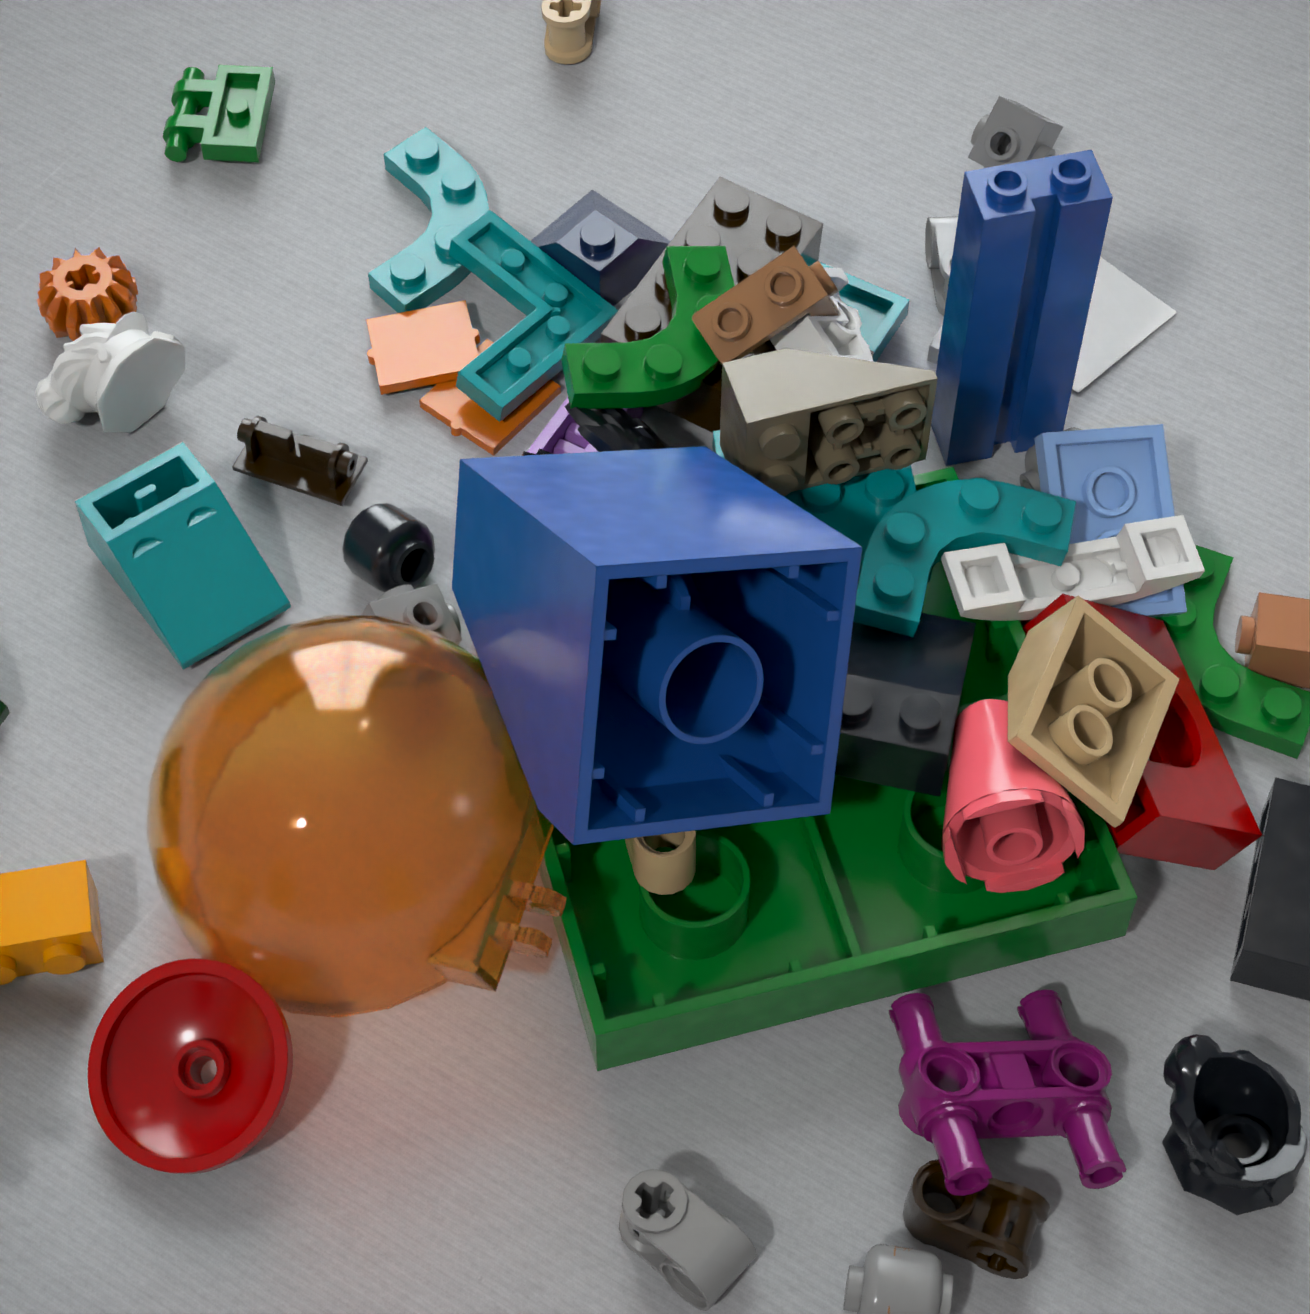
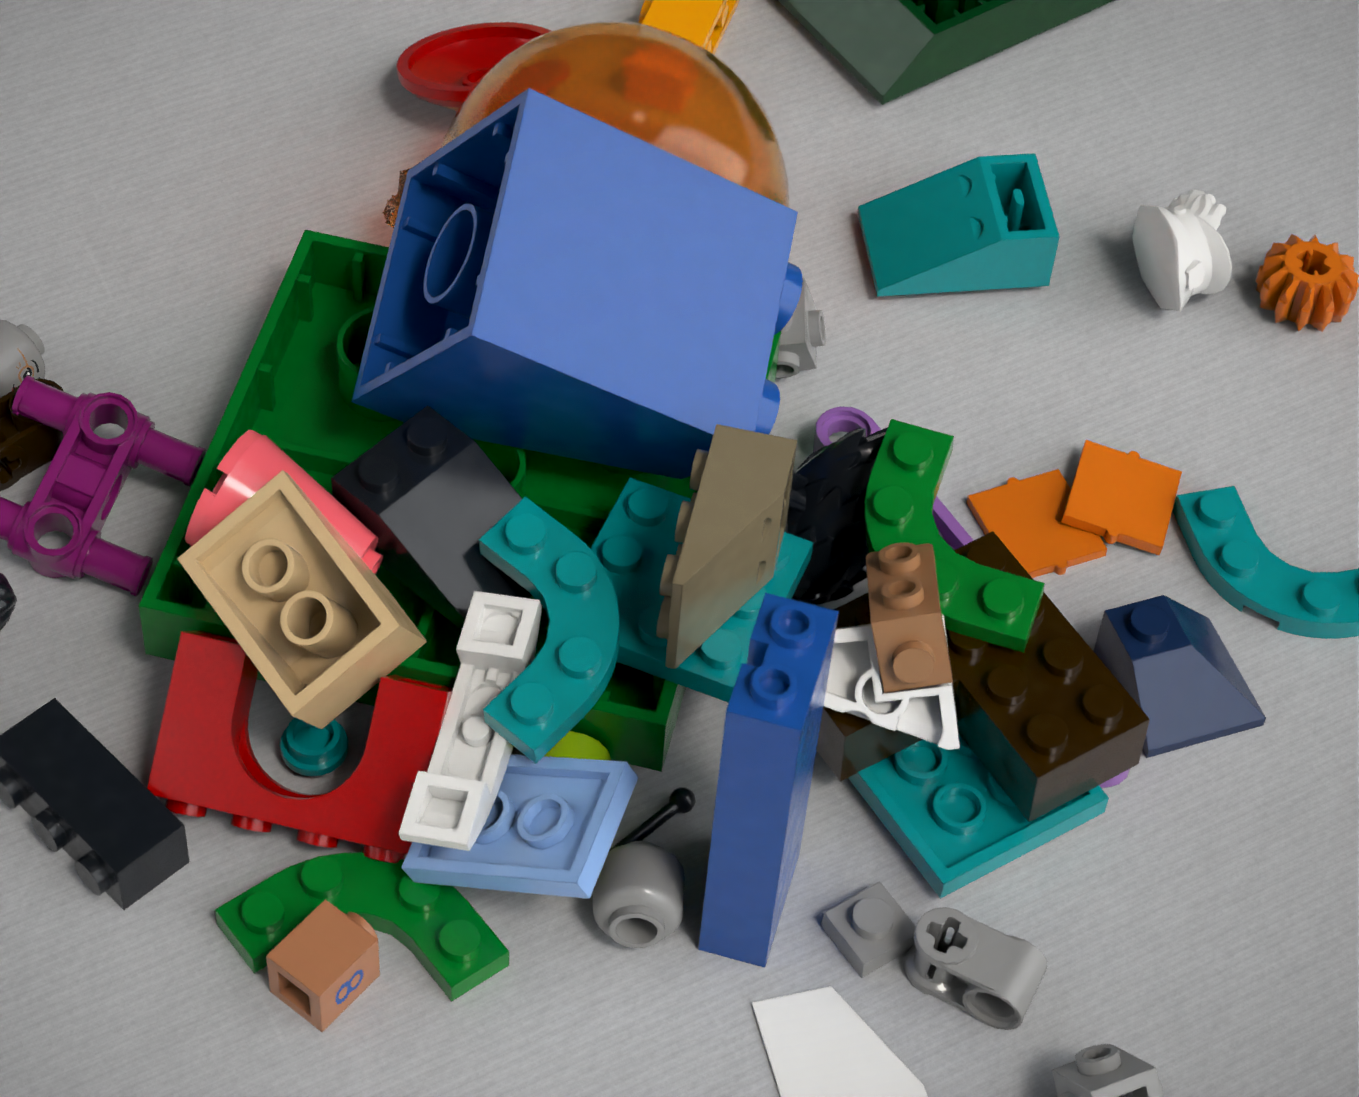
camera: 115 degrees right, 5 degrees down
(297, 461) = (1033, 354): dark brown hinge -> none
(388, 547) = (886, 362): black head -> none
(555, 306) = (1059, 555): teal plate -> none
(691, 1246) = (139, 271): light grey piece -> none

